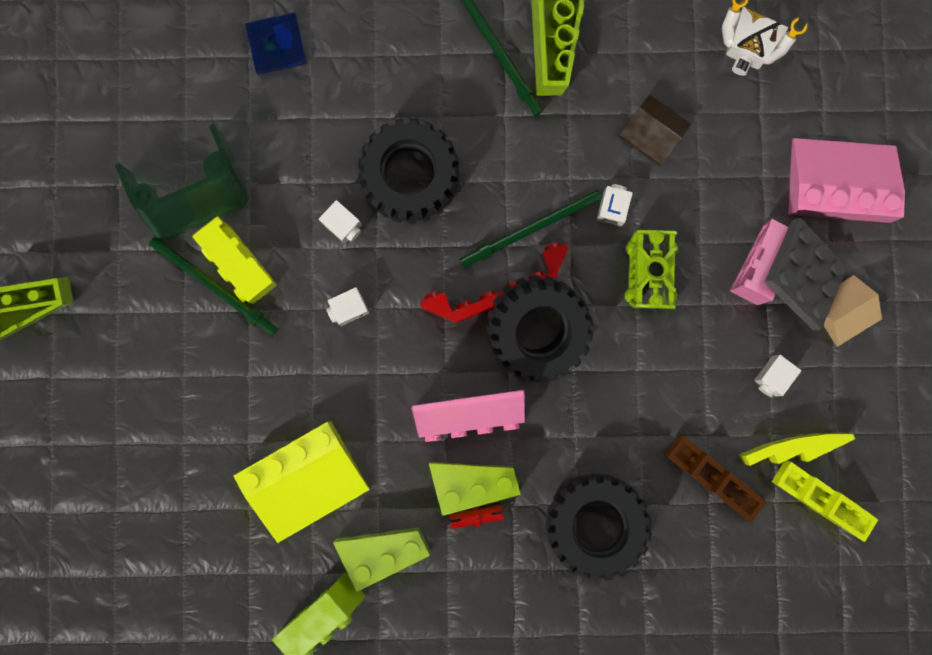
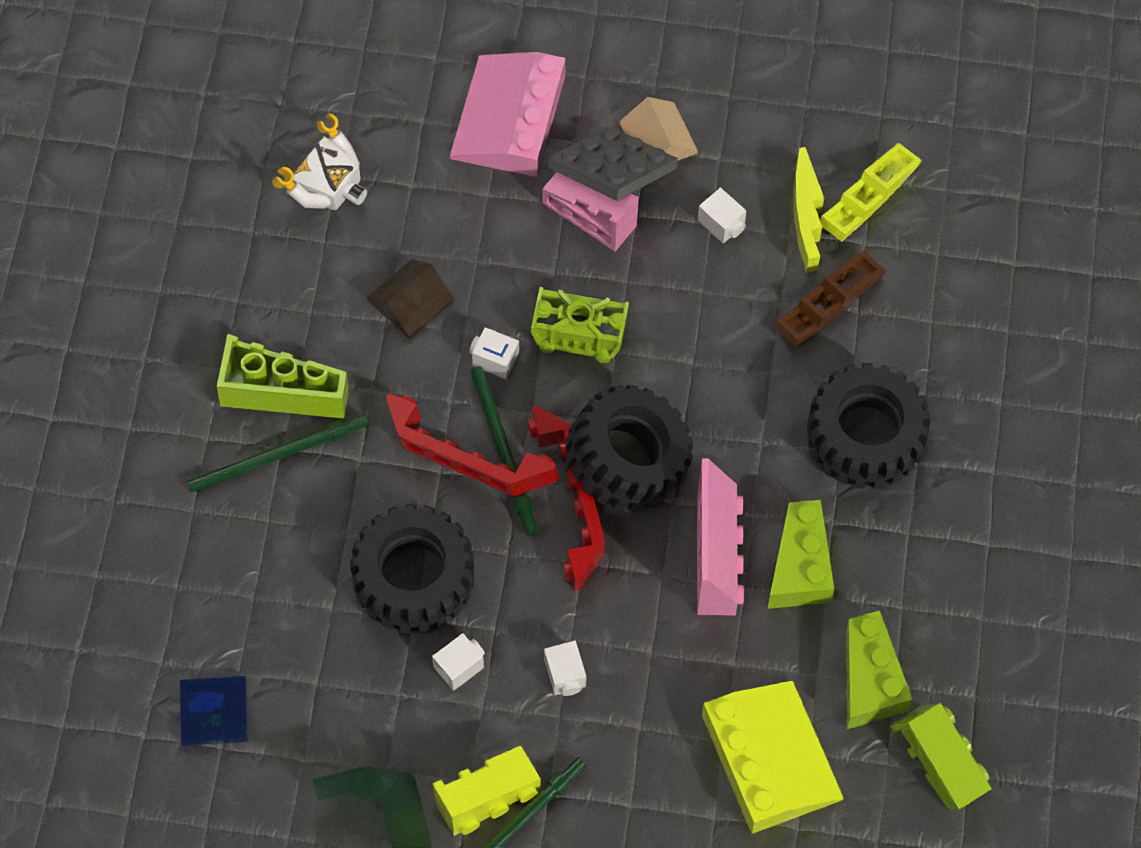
camera: 80 degrees left, 20 degrees down
(476, 516) = (841, 562): red pin -> none
(541, 143) = (532, 473): none -> red slope

